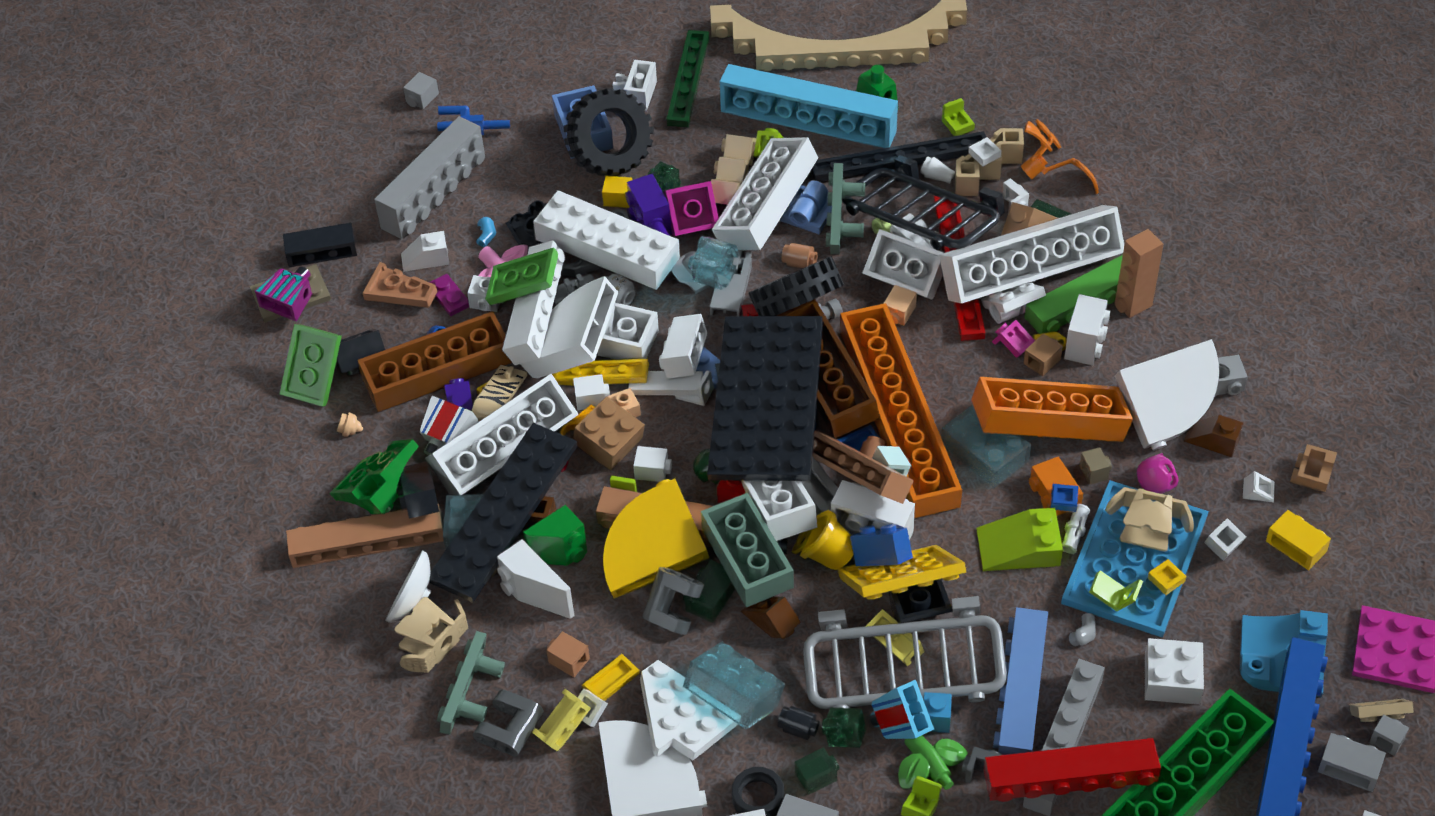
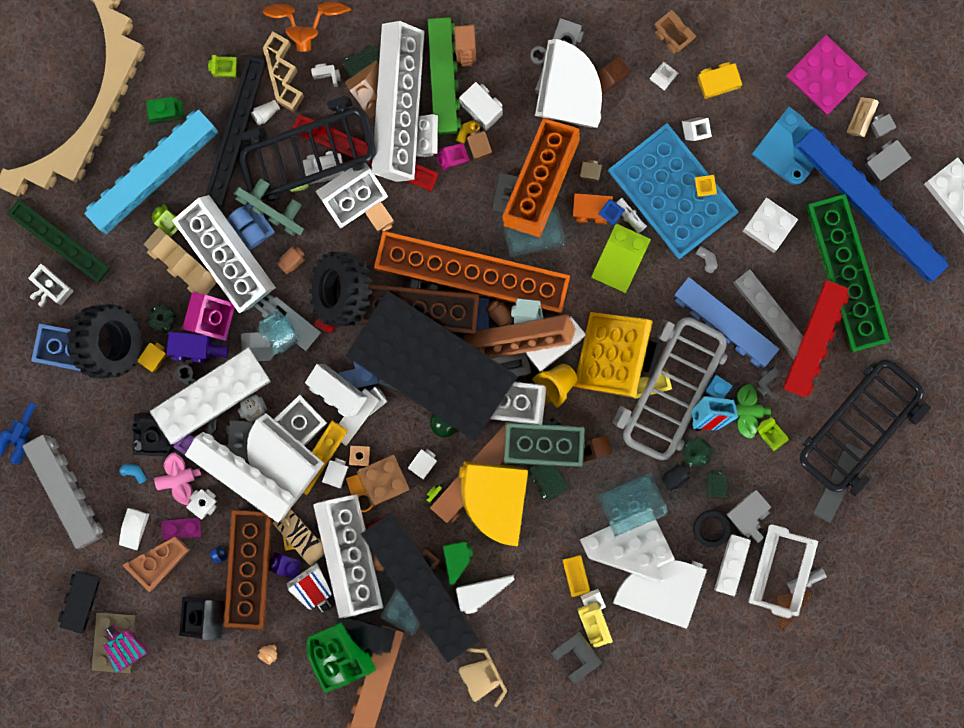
camera: 55 degrees left, 35 degrees up
(310, 365) = (206, 660): bright green plate -> none
(412, 590) = (445, 677): white dish -> none
(456, 693) = (522, 666): sand green plate -> none
(522, 276) = (220, 477): bright green plate -> none
(567, 654) = (545, 595): nougat brick -> none
(661, 597) = (542, 517): dark grey connector -> none
(881, 546) = (585, 354): blue brick -> none
(984, 151) = (285, 76): white plate -> none
(1114, 593) = (699, 226): lime bracket -> none
(1149, 521) = (660, 169): tan piece -> none
(1154, 475) = (618, 137): dark pink helmet -> none

